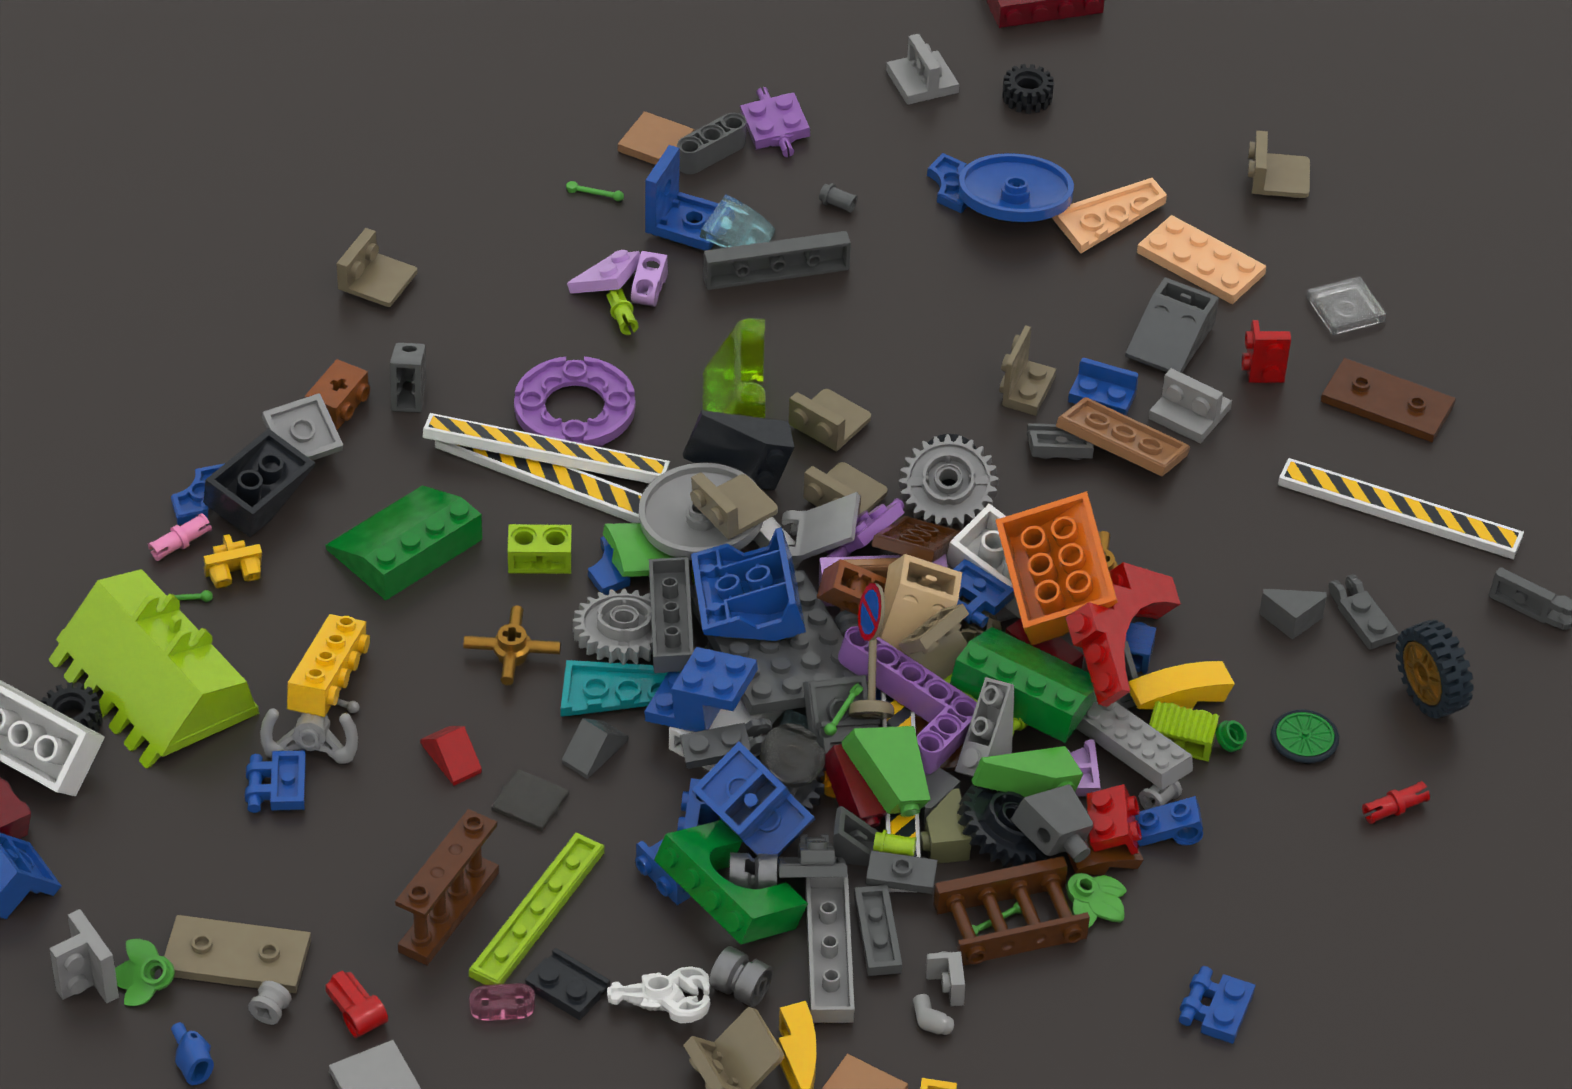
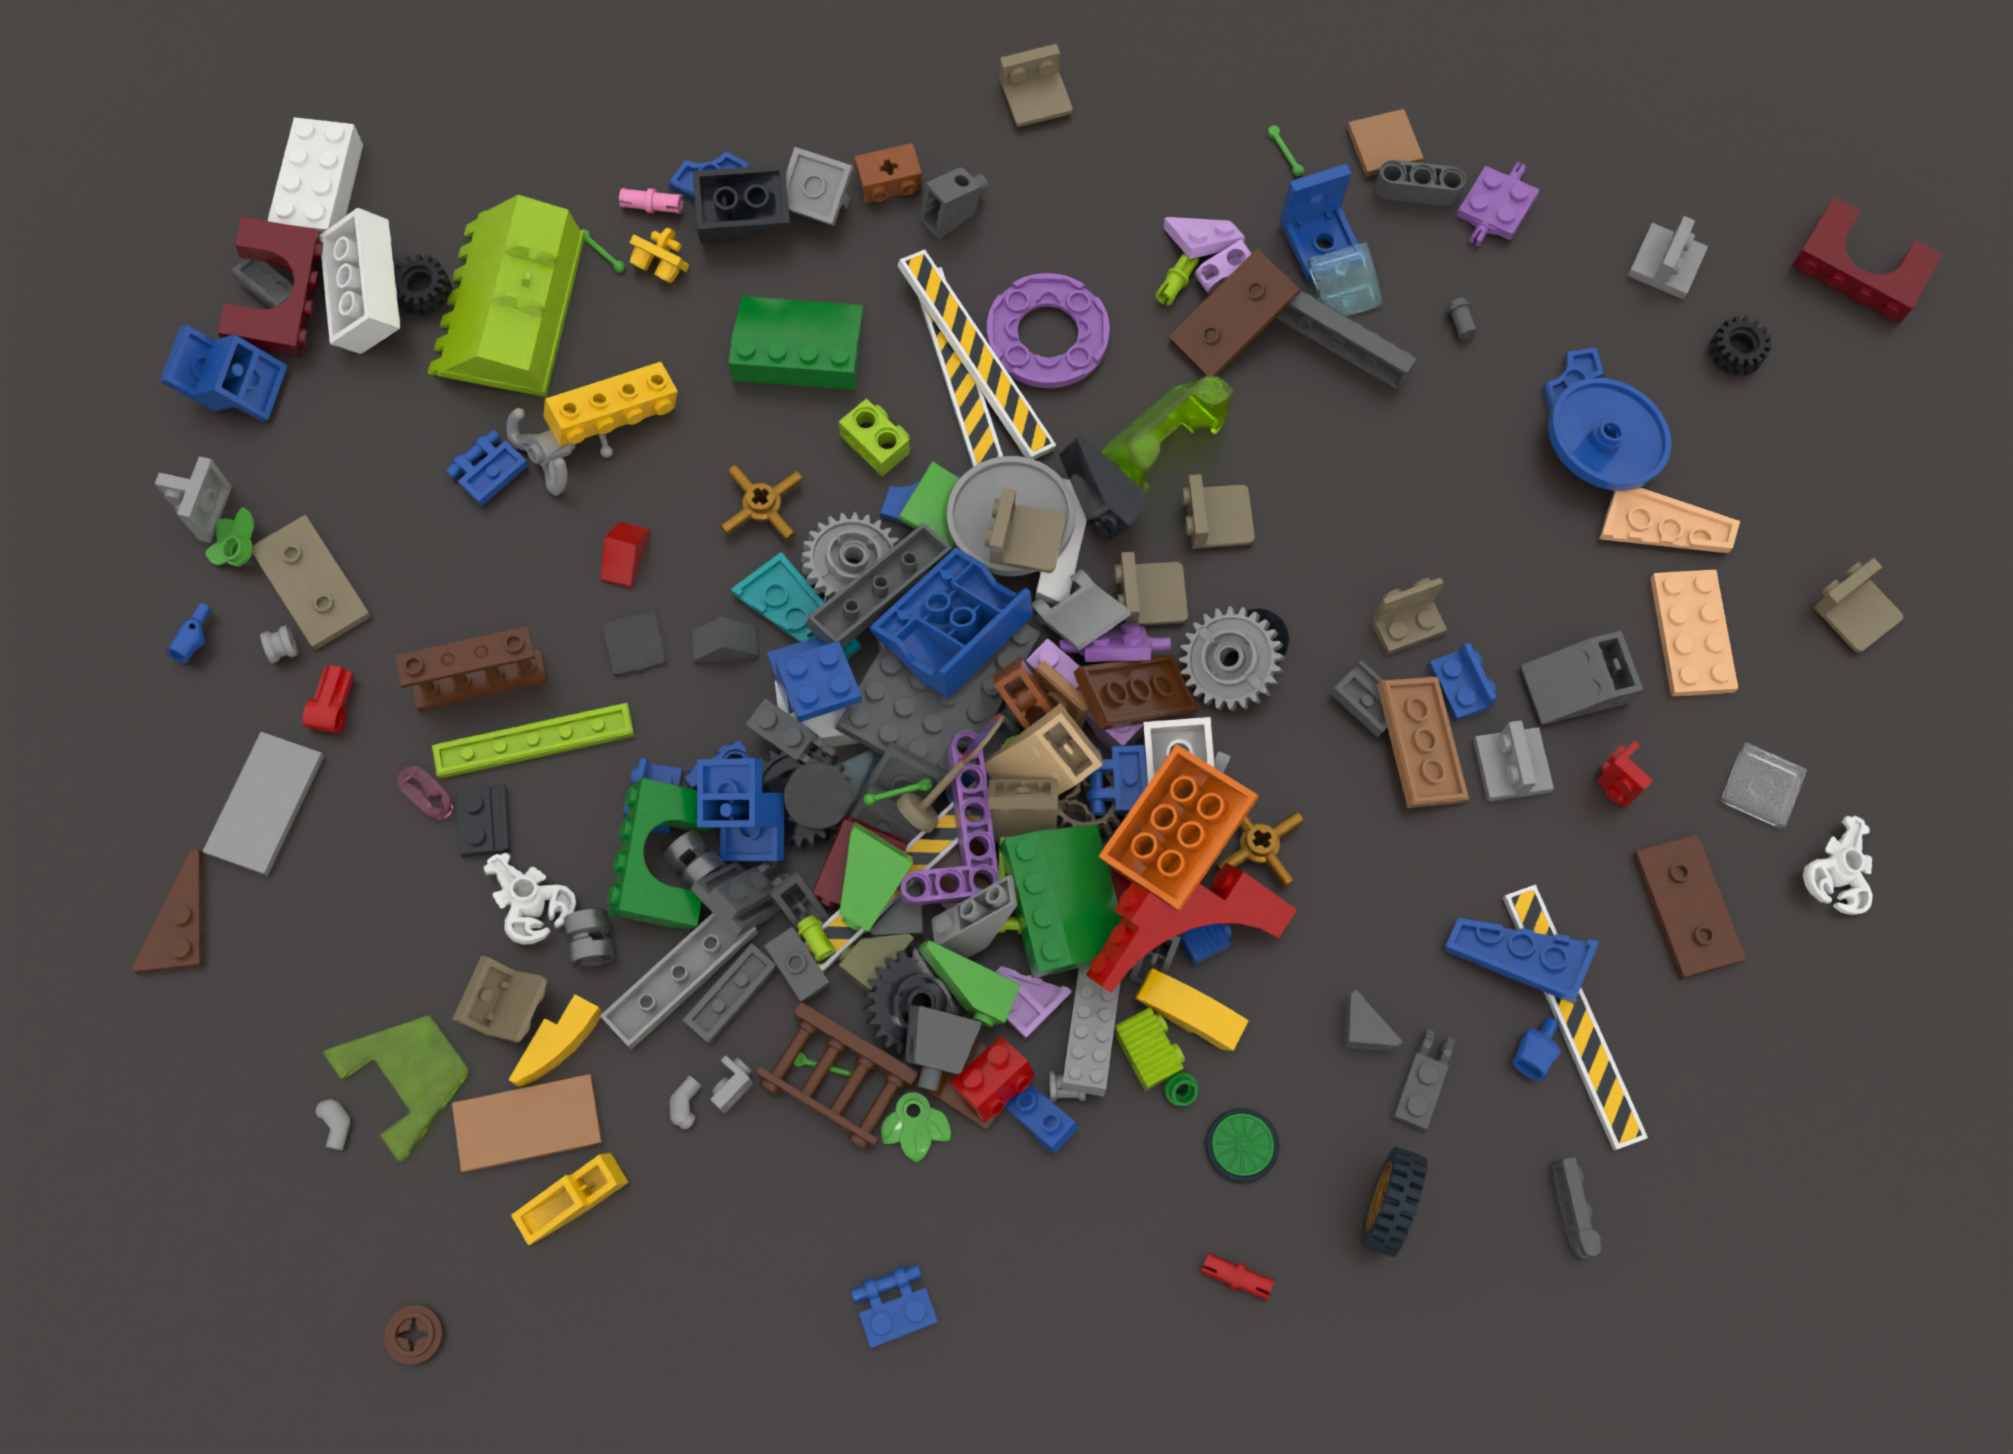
camera: 45 degrees right, 25 degrees up
(693, 295) = (1235, 314): none -> reddish brown plate
(1342, 491) = (1538, 960): none -> blue wing
(1405, 540) = (1537, 1051): none -> blue piece
(1446, 309) = (1841, 869): none -> white animal

